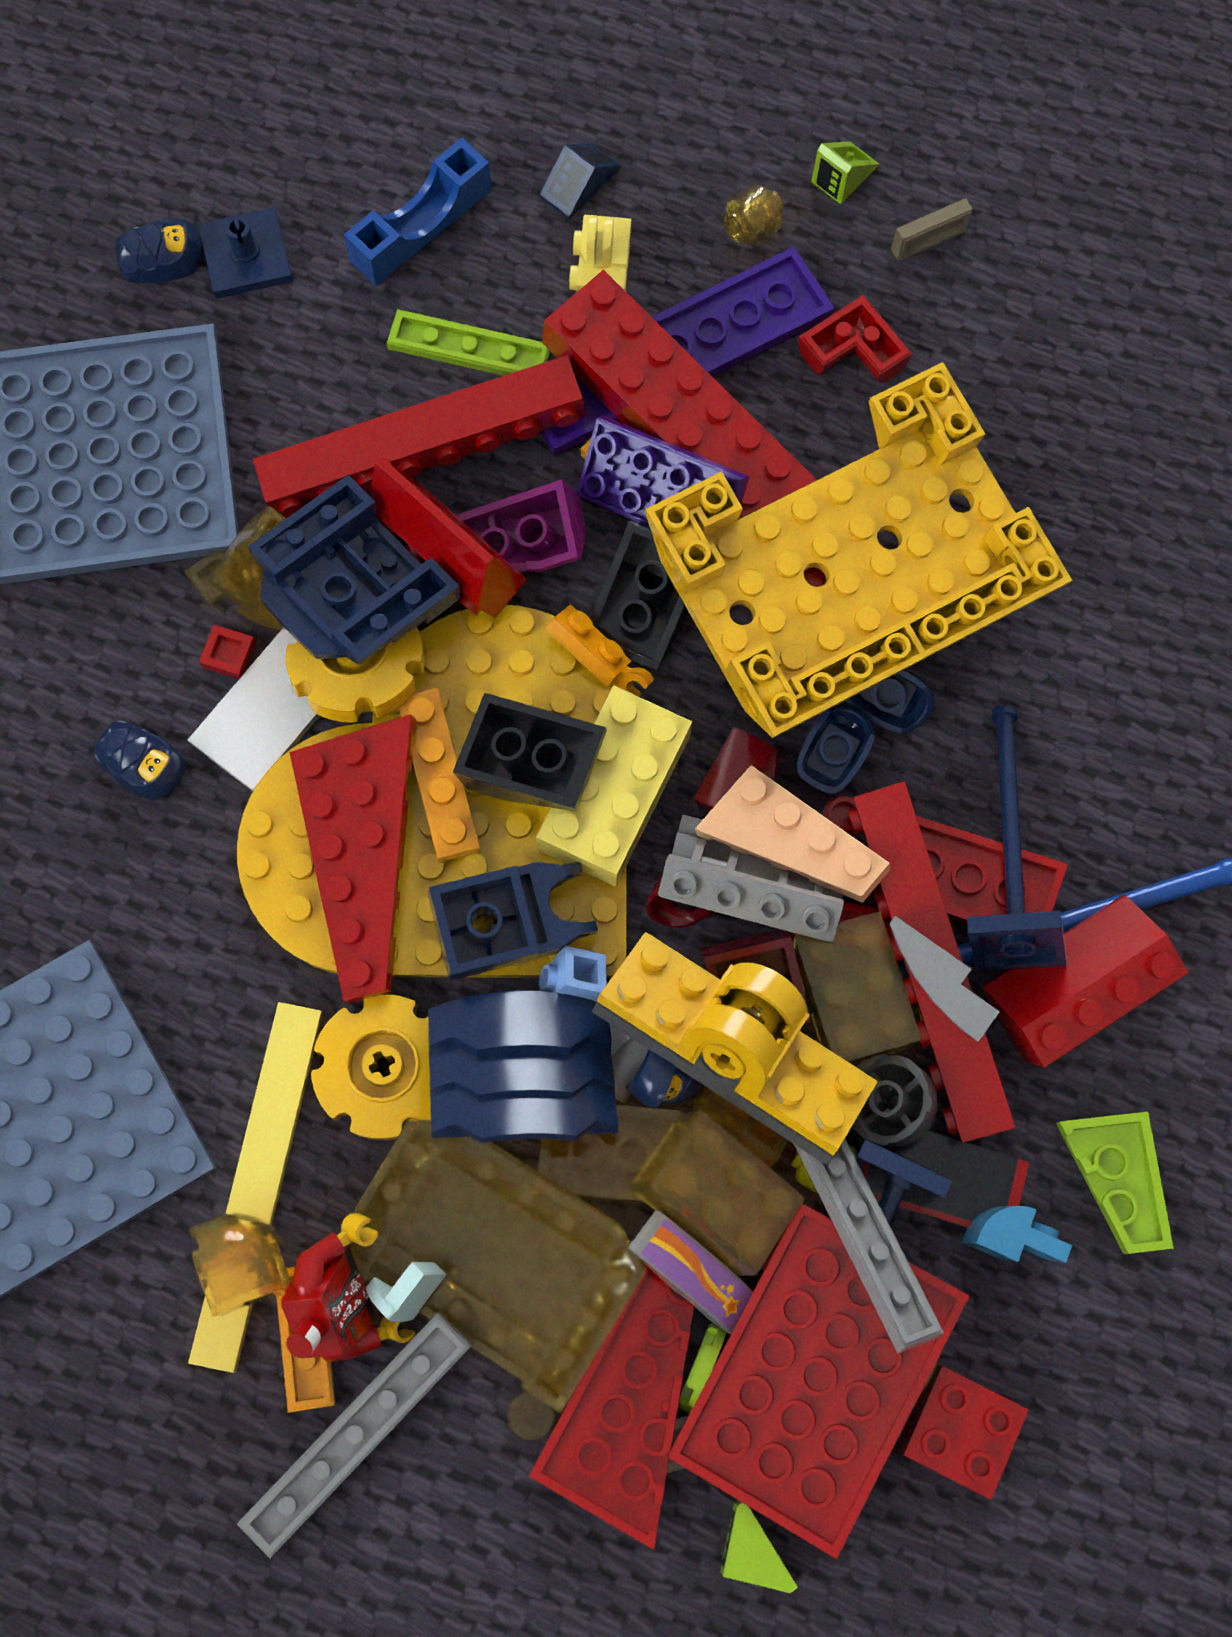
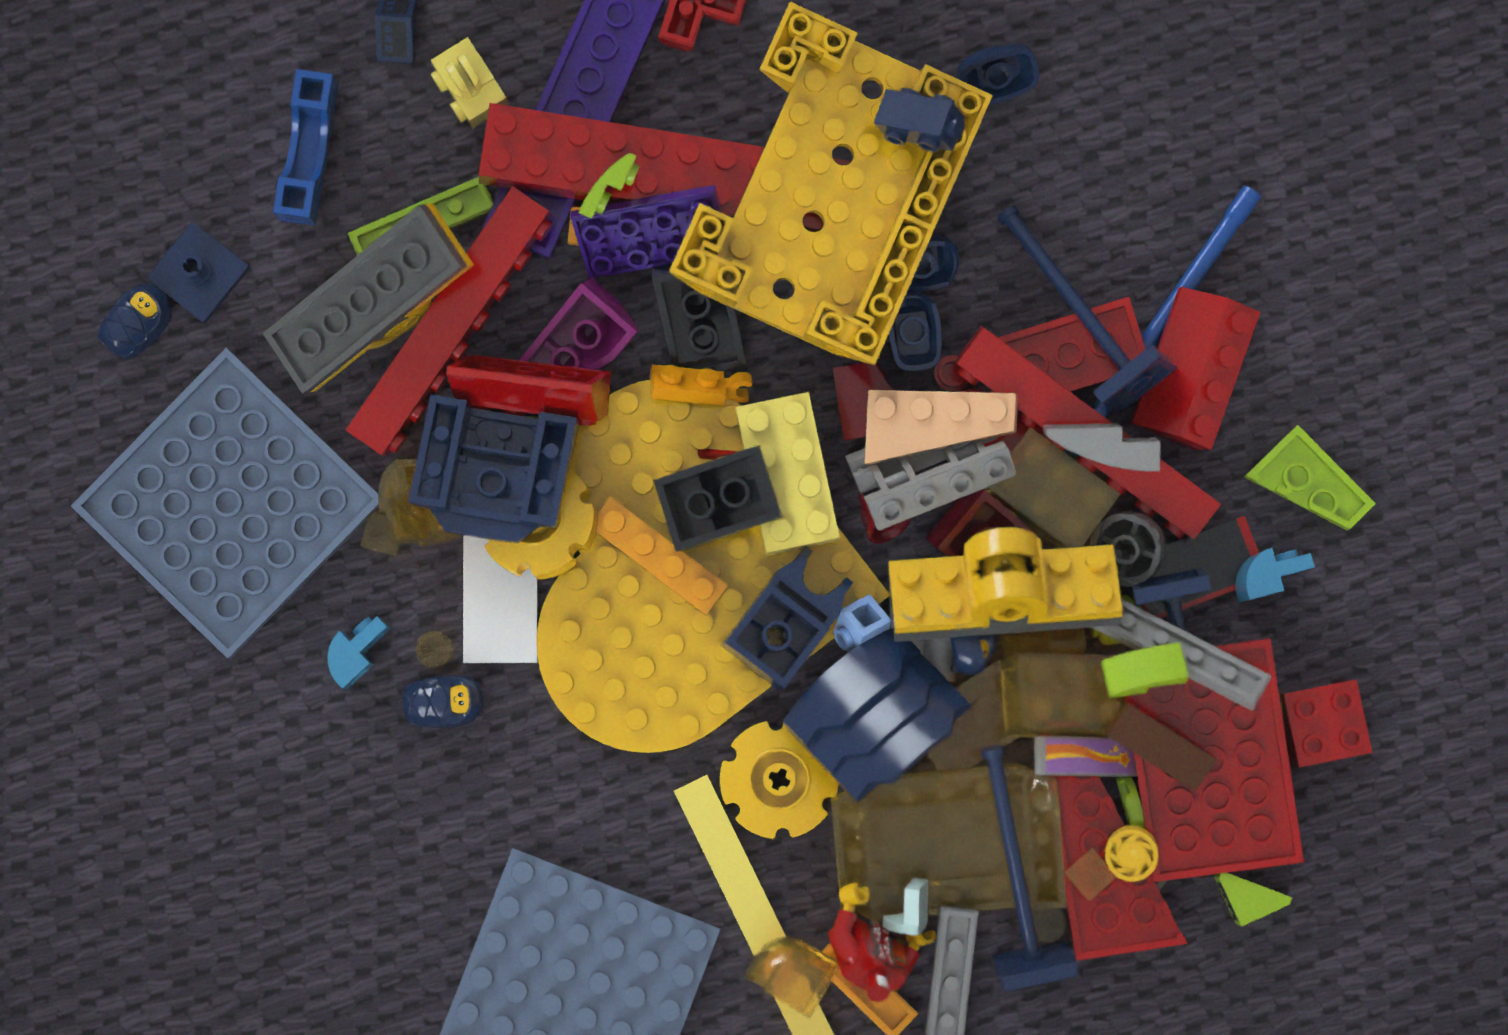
camera: 35 degrees left, 10 degrees up
(92, 654) = (347, 656): none -> dark azure brick
(173, 710) = (434, 649): none -> clear yellow tile
(227, 652) = (439, 580): red plate -> none
(356, 833) = (634, 636): red wing -> none
(365, 359) = (369, 299): none -> dark grey piece
(482, 1443) = (1033, 963): none -> dark blue tile
(609, 1397) = (1089, 874): none -> clear yellow tile
(666, 400) = (617, 175): none -> lime slope
(666, 1408) = (1131, 853): none -> yellow wheel
(776, 1317) = (1160, 745): none -> reddish brown tile
(817, 1223) = (1144, 668): none -> lime slope
(986, 545) = (919, 120): none -> dark blue brick
(1098, 583) = (1001, 71): none -> dark blue piece

